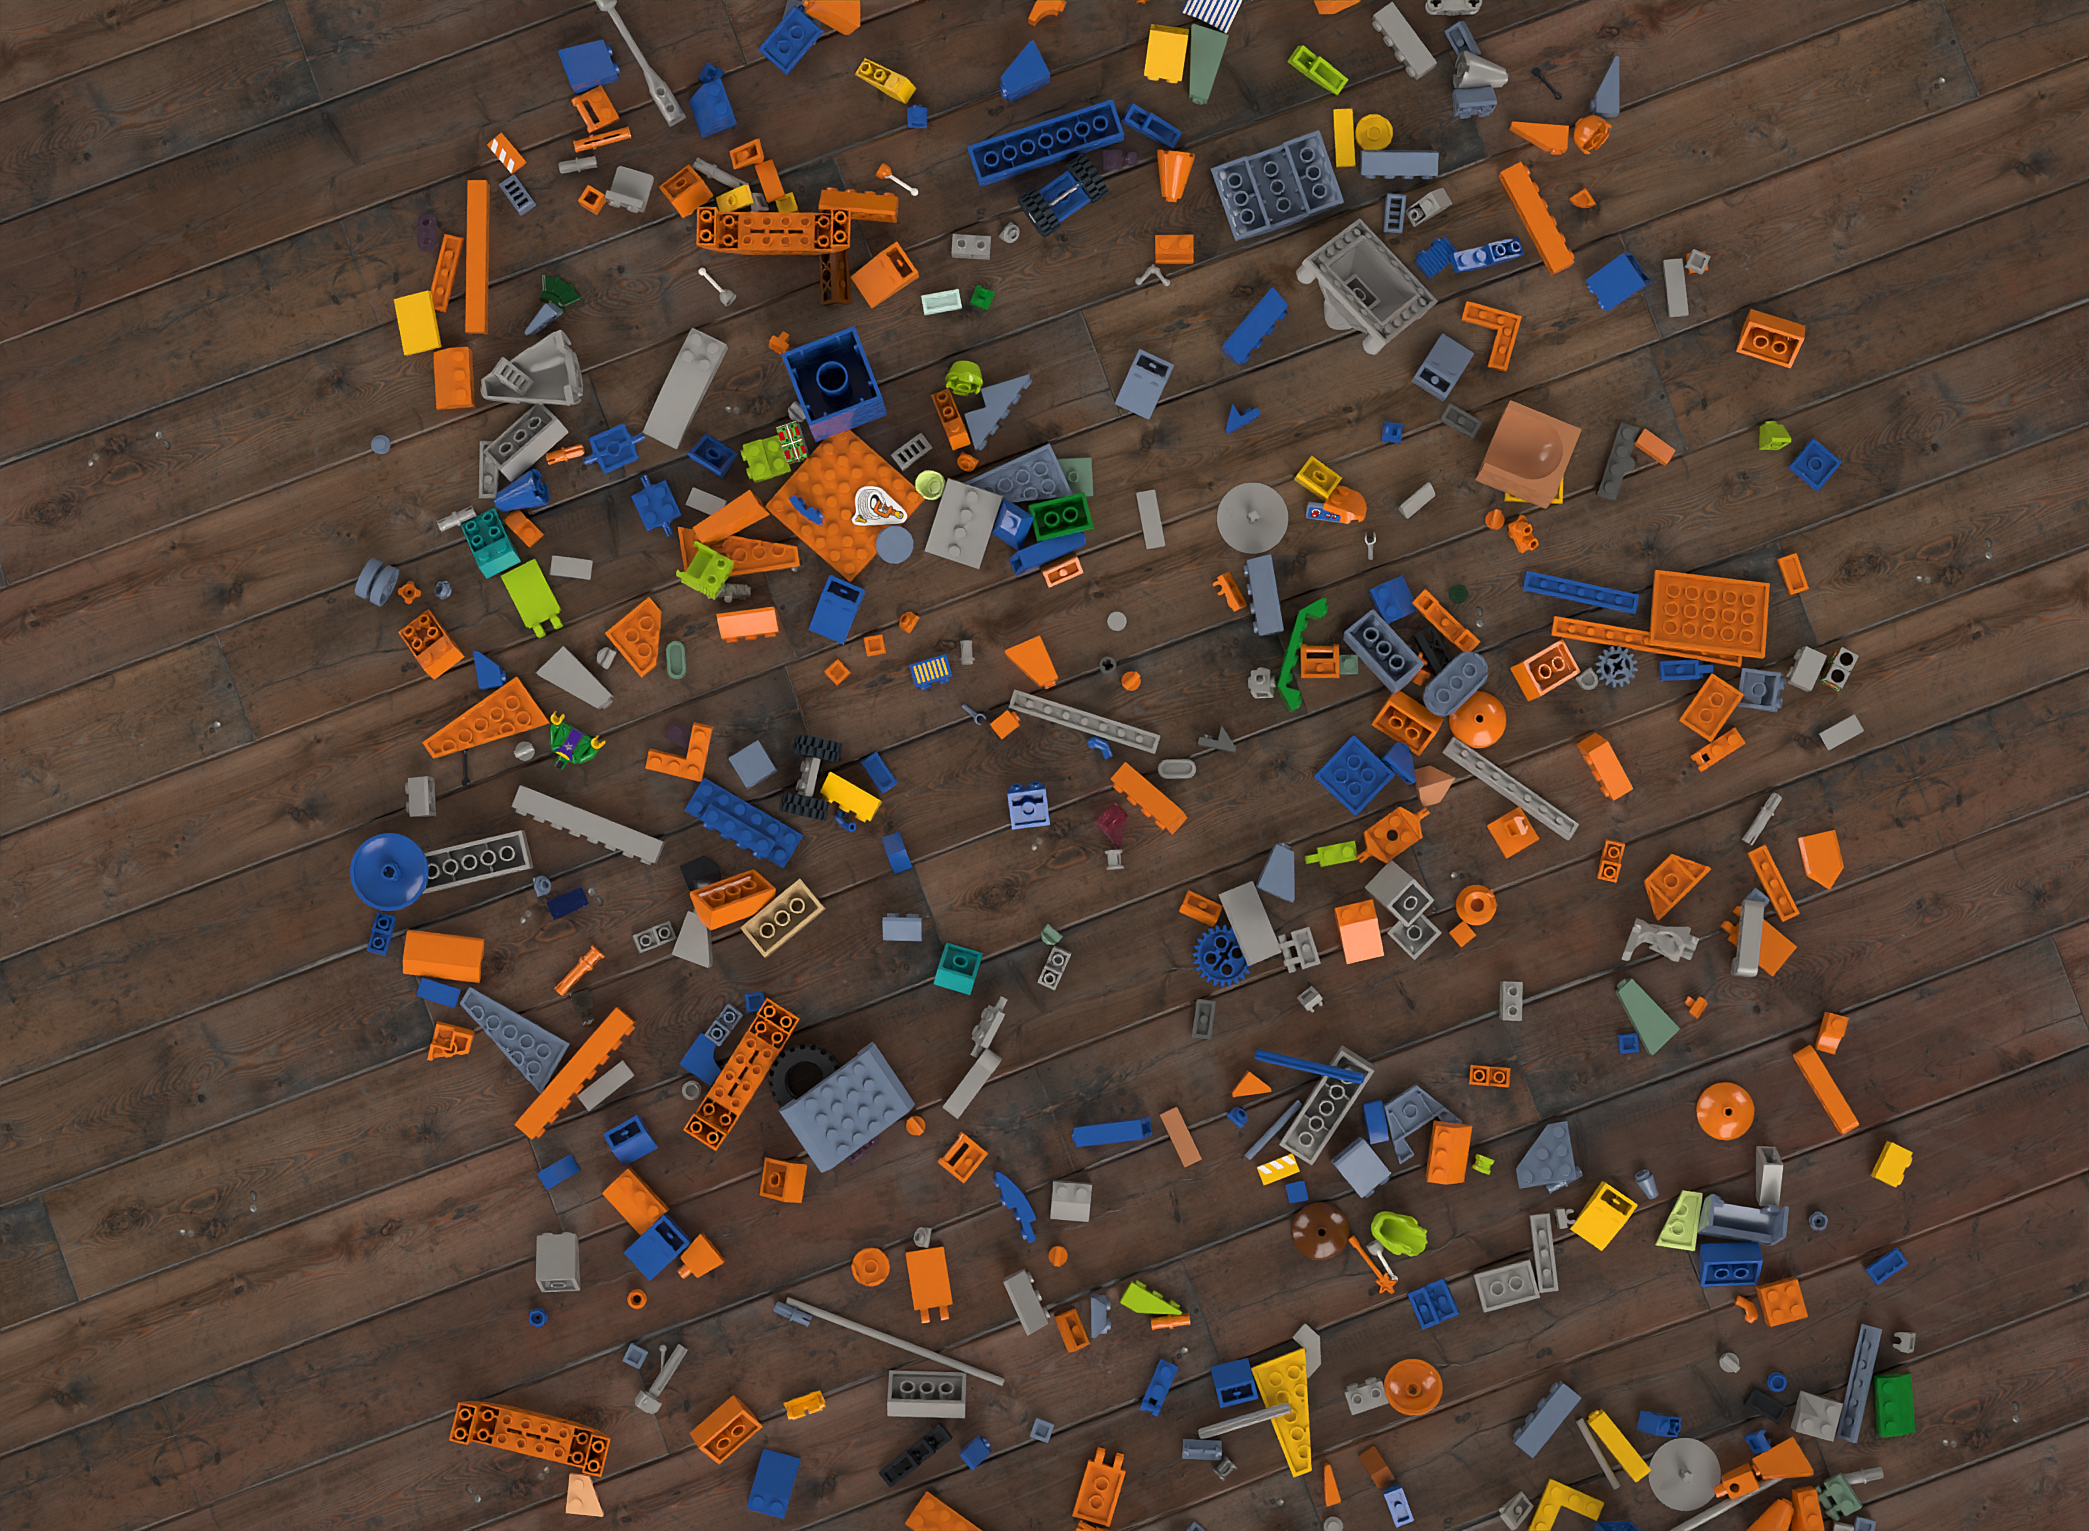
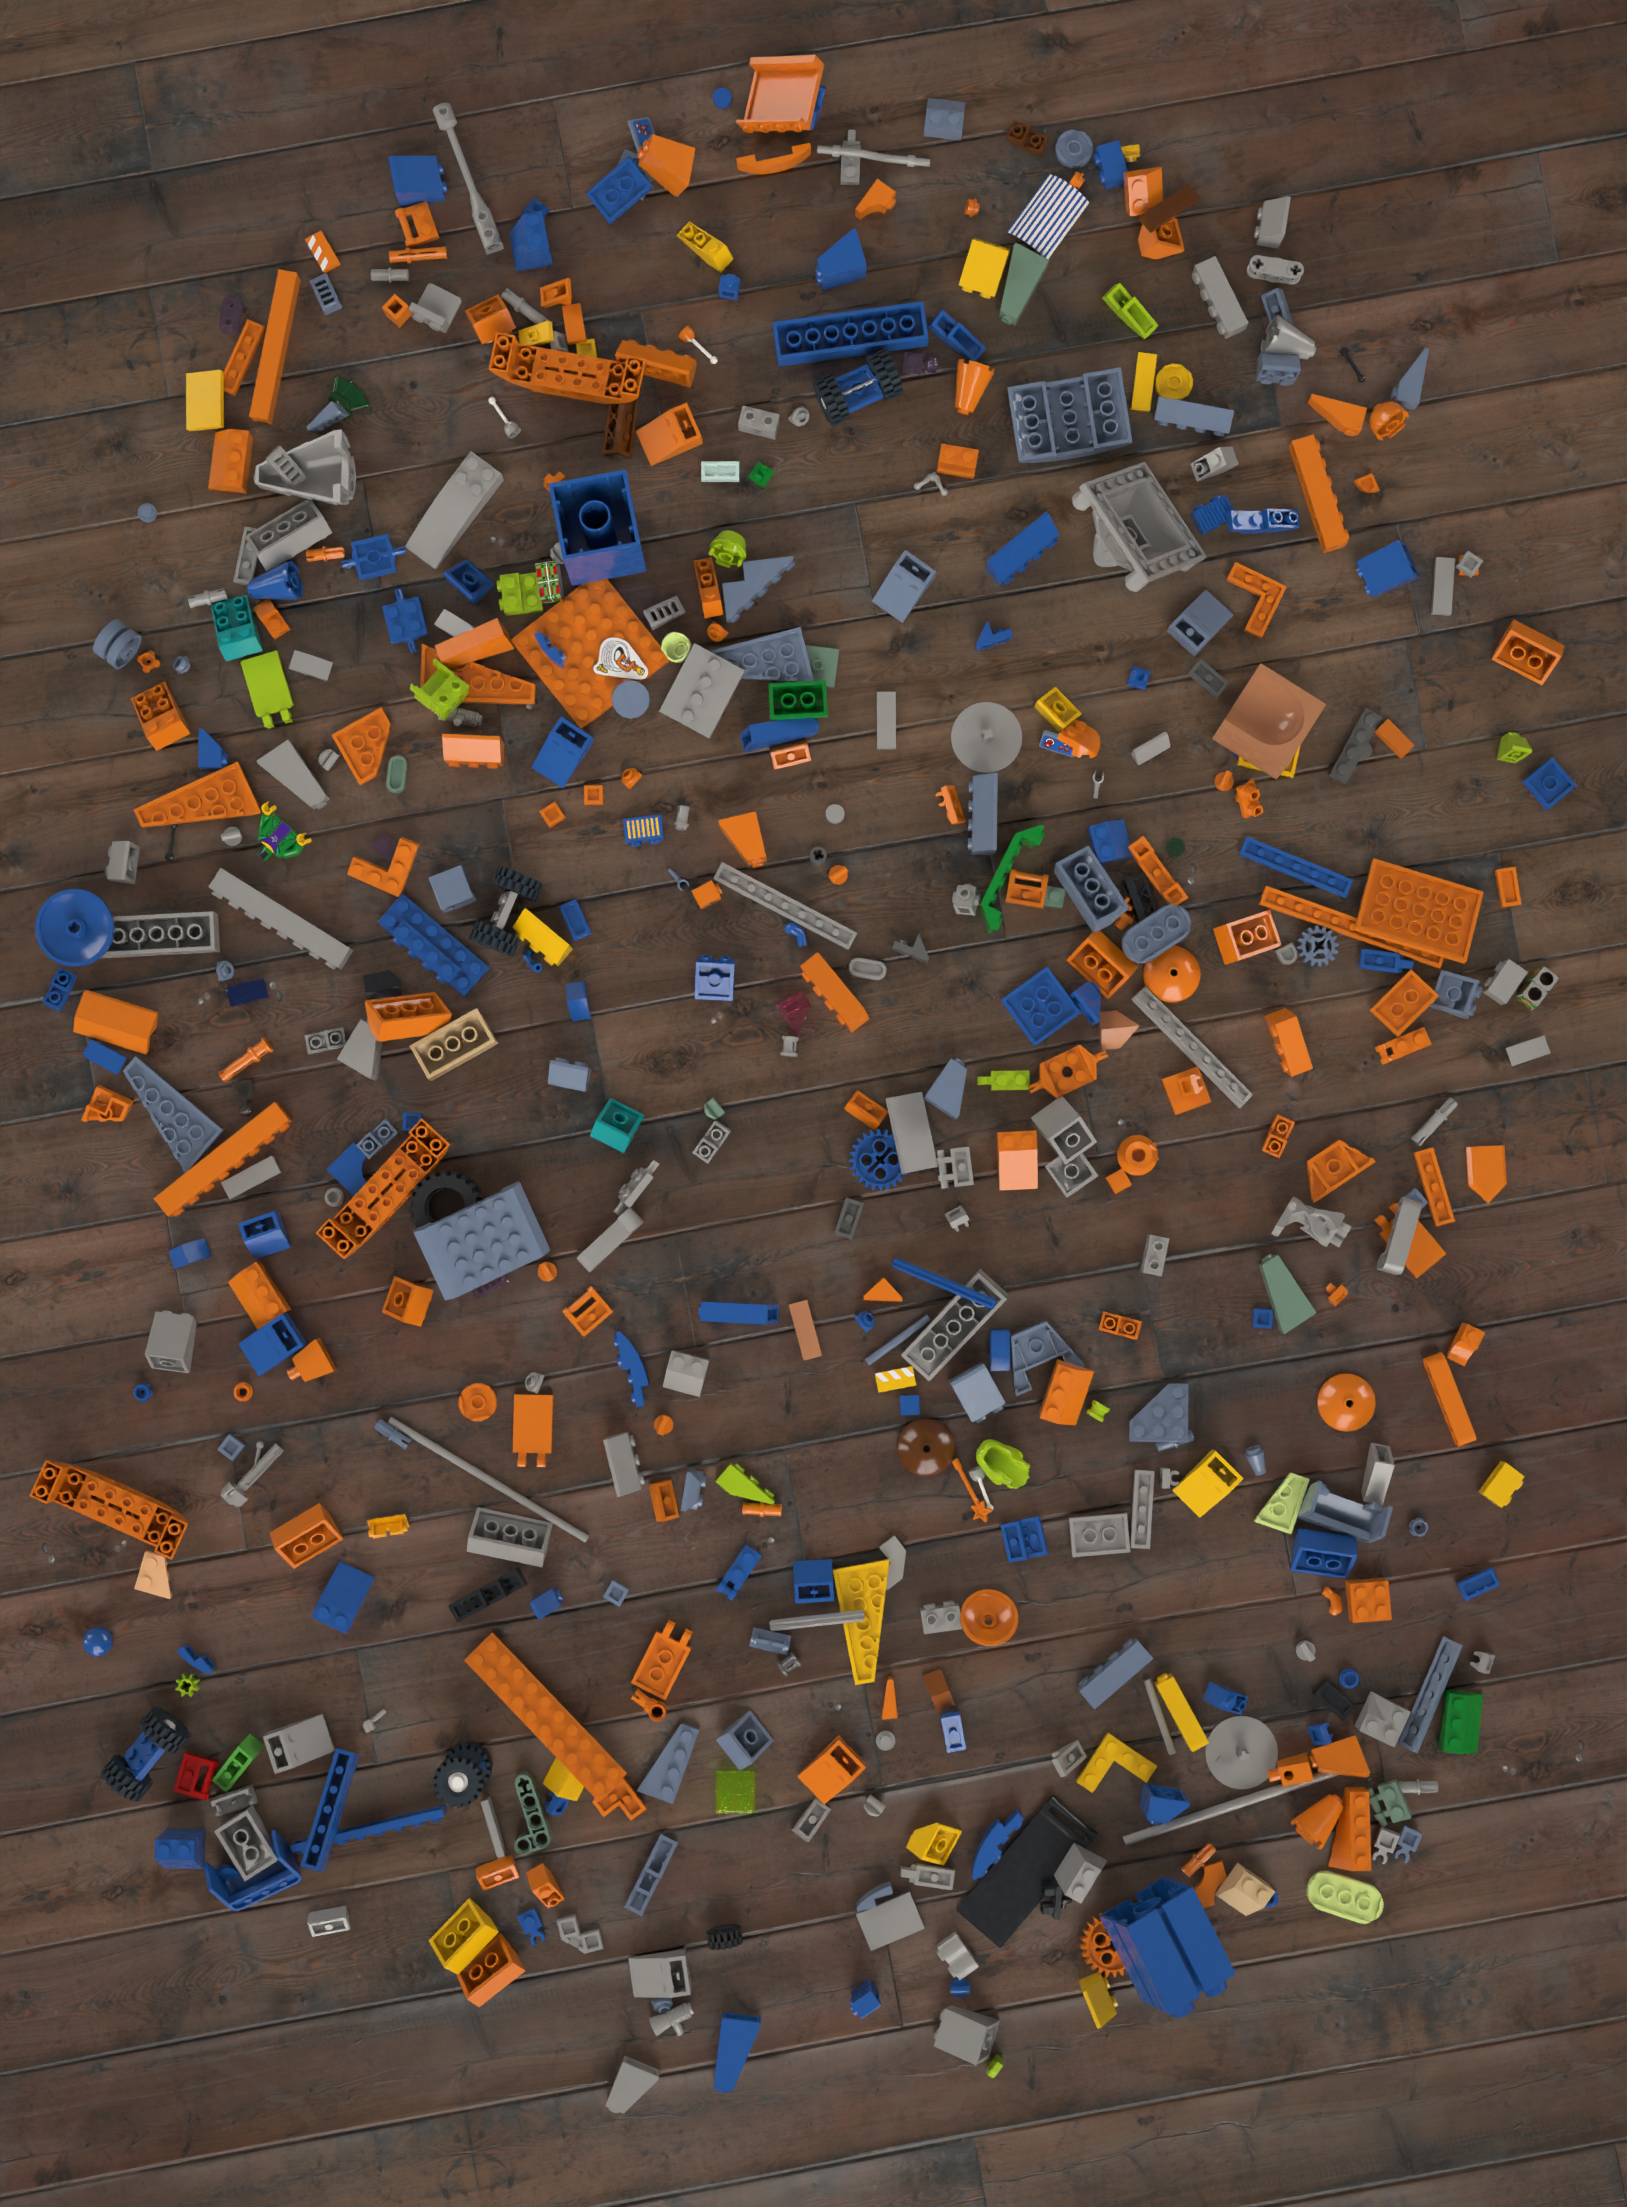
camera: 15 degrees right, 0 degrees up
(1012, 524) = (749, 700): blue slope -> none
(1402, 197) = (1190, 450): sand blue slope -> none

